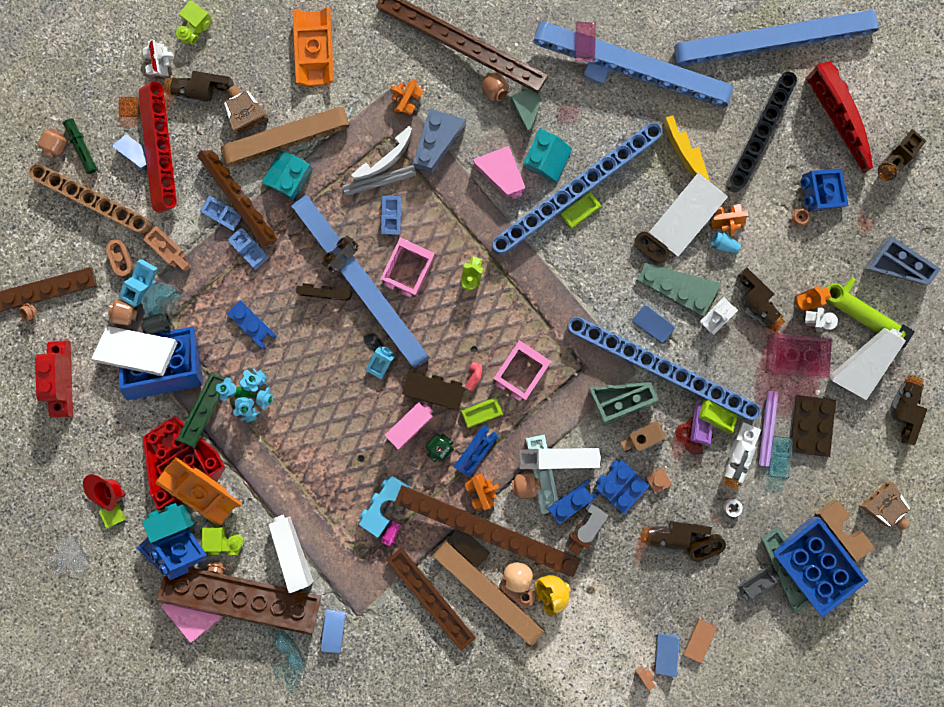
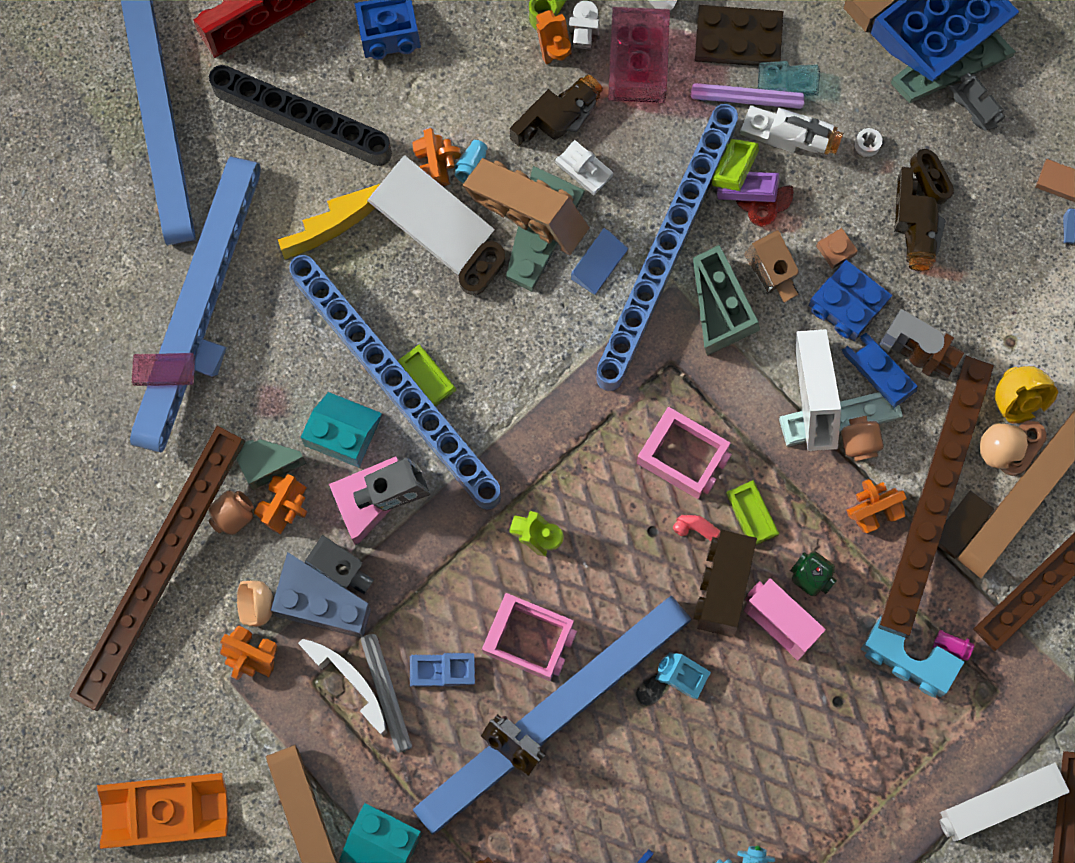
camera: 95 degrees left, 10 degrees down
(324, 292) = (574, 770): dark brown plate -> none
(437, 100) = (254, 603): none -> light nougat hair
(459, 142) = (328, 555): none -> dark grey torso
(475, 451) = (814, 518): blue hinge -> none
(498, 119) = (284, 505): none -> orange hips
(502, 183) = (403, 484): none -> dark grey torso
(692, 276) = (527, 203): none -> medium nougat wedge
(803, 213) = (428, 52): nougat plate -> none

